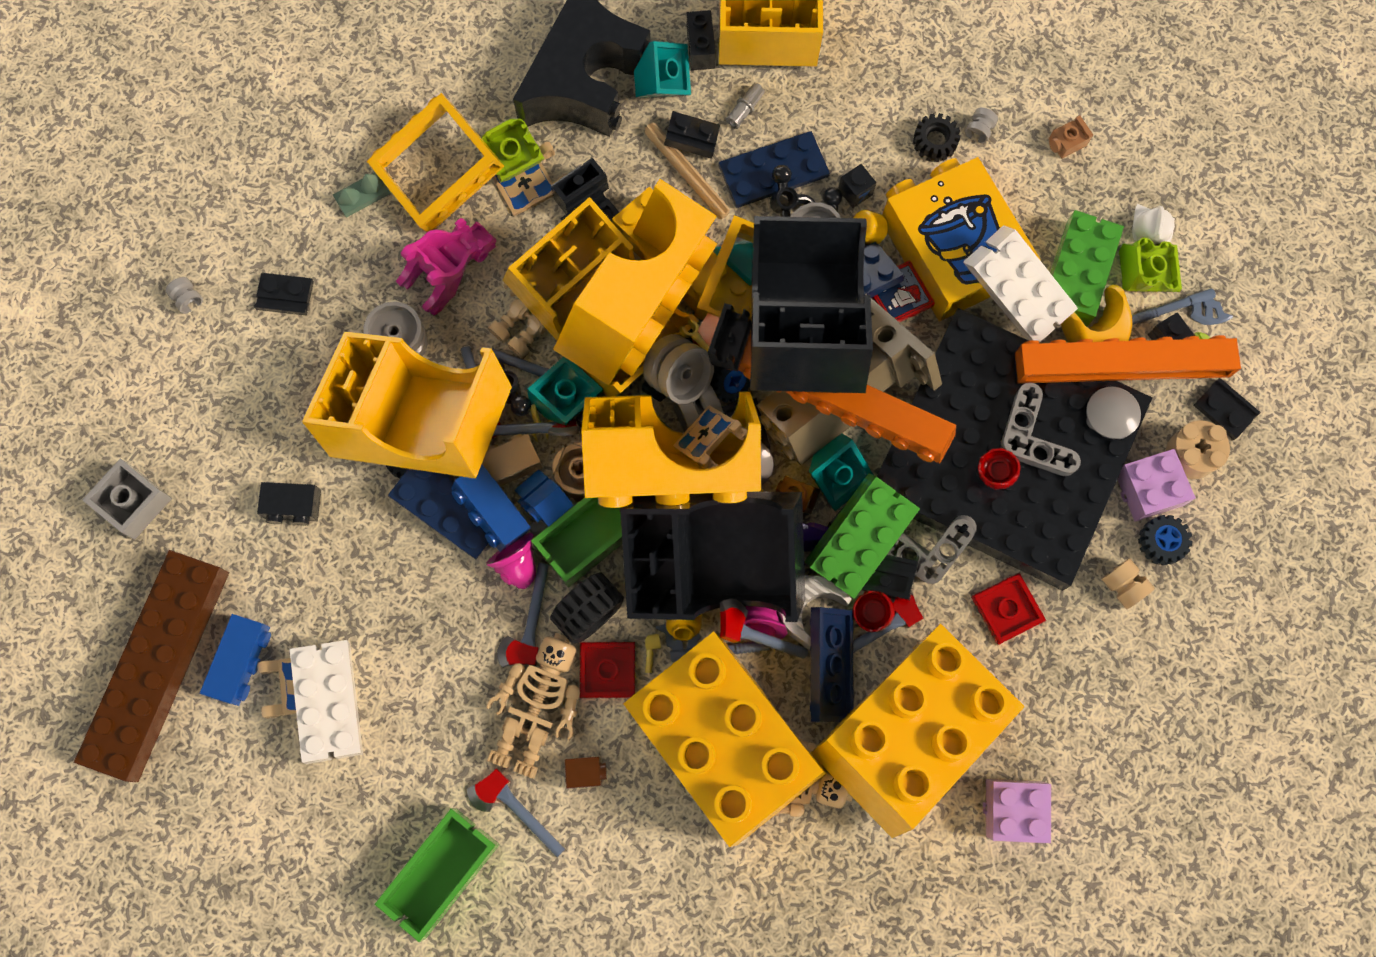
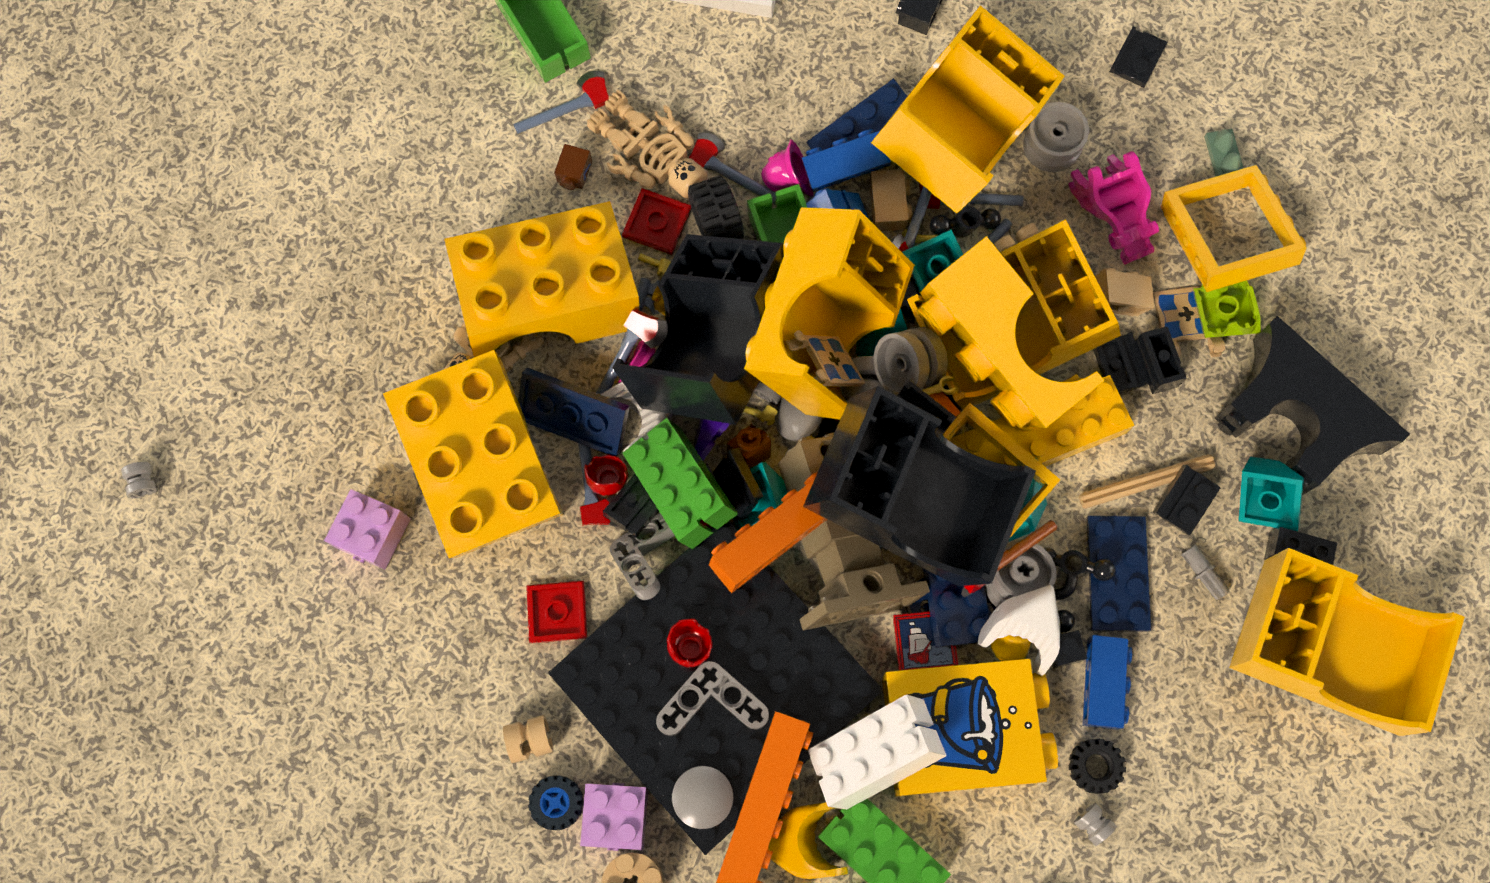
camera: 115 degrees right, 0 degrees up
(525, 228) = (1126, 292): none -> tan brick
(836, 489) = (738, 483): none -> black plate
(861, 201) = (1031, 617): none -> white animal
(869, 148) = (1106, 682): none -> blue brick

